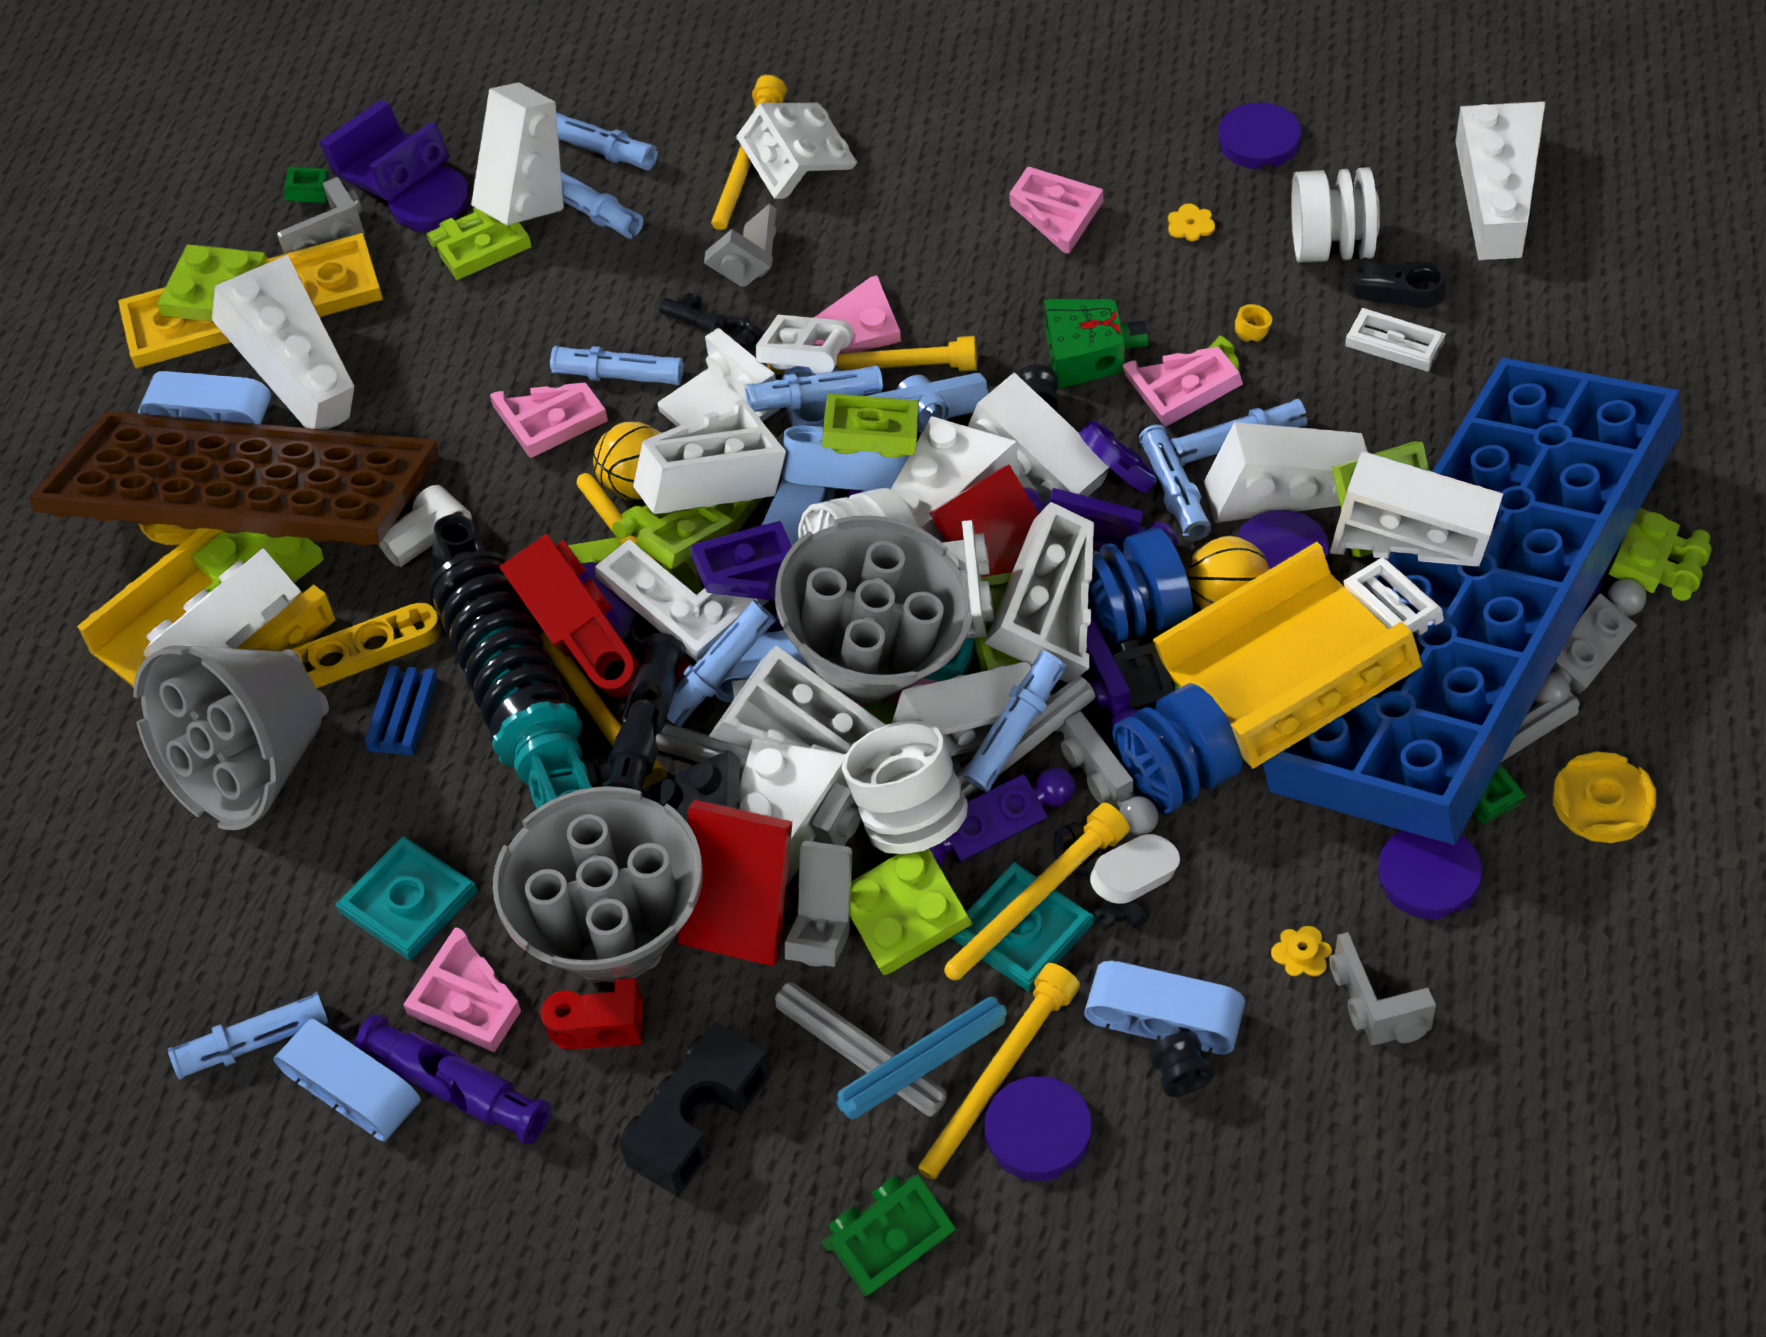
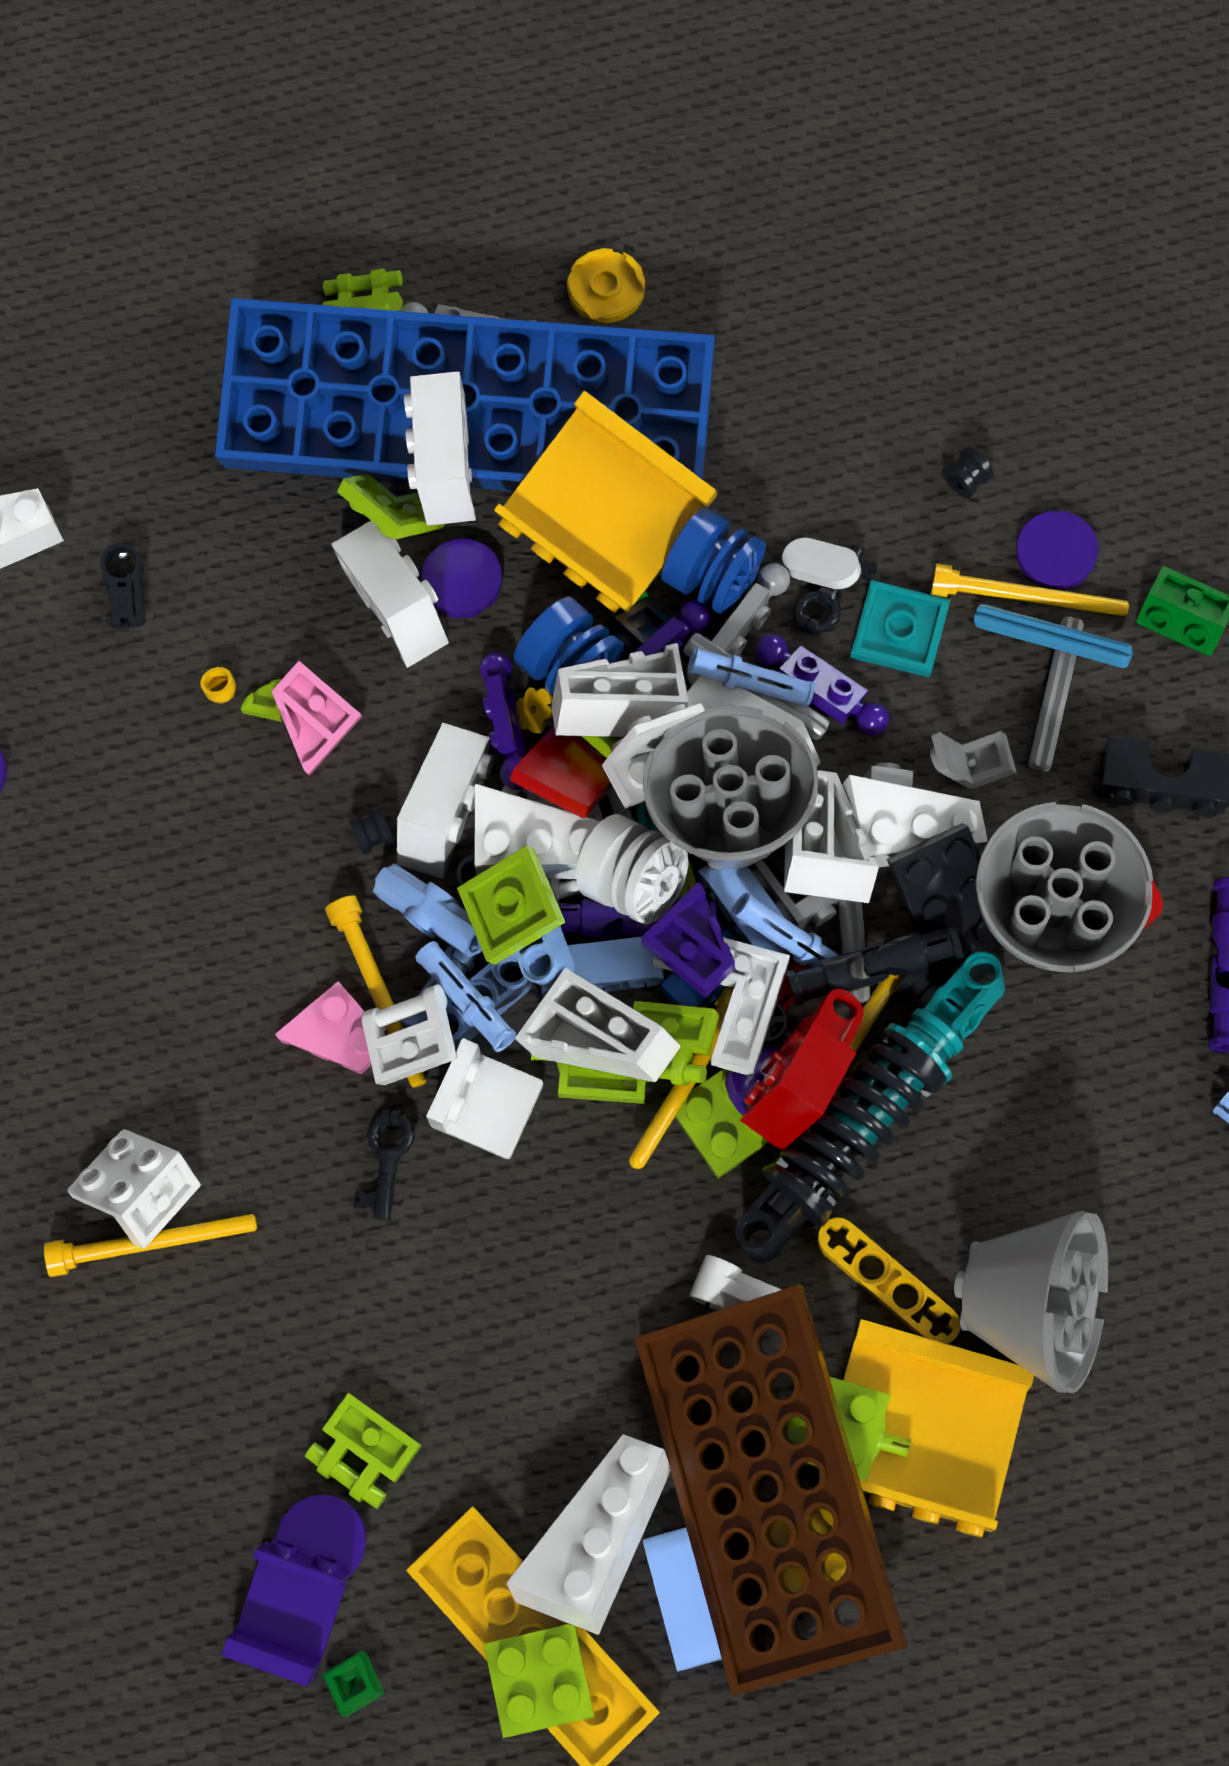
camera: 115 degrees left, 20 degrees up
(232, 611) = (936, 1387): white wedge -> none
(332, 225) = (374, 1614): light grey bracket -> none
(406, 898) = (1095, 1095): teal tile -> none
(408, 679) = (962, 1193): blue tile -> none
(463, 995) = (1158, 996): bright pink wing -> none
(518, 156) = (288, 1418): white wedge -> none
(549, 415) = (561, 1251): bright pink wing -> none
(601, 208) = (273, 1362): light blue pin -> none
(606, 364) = (488, 1269): light blue pin -> none
(613, 144) = (189, 1345): light blue pin -> none
(618, 457) = (594, 1132): yellow piece -> none
(741, 883) = (981, 804): red tile -> none
(748, 255) = (283, 1163): light grey bracket -> none
(905, 787) = (828, 721): white wheel -> none
(905, 909) = (929, 703): lime plate -> none
(1056, 205) = (126, 911): bright pink wing -> none
(1089, 339) = (292, 811): green torso -> none
(1103, 828) = (803, 594): yellow piece -> none
(1118, 457) = (431, 722): dark purple tile -> none
(1164, 1003) = (929, 501): light blue beam -> none
(1180, 495) = (426, 681): light blue pin -> none
(1190, 222) = (94, 783): yellow plant -> none
(1210, 440) = (338, 640): light blue pin -> none
(1222, 568) = (523, 589): yellow piece -> none
(1297, 961) = (832, 447): yellow plant -> none
(1334, 215) = (78, 649): white wheel -> none
(1393, 345) = (188, 603): white tile -> none
(1398, 1017) = (866, 352): light grey bracket -> none
(1415, 622) = (503, 473): white tile -> none
(1429, 875) = (736, 376): dark purple tile -> none

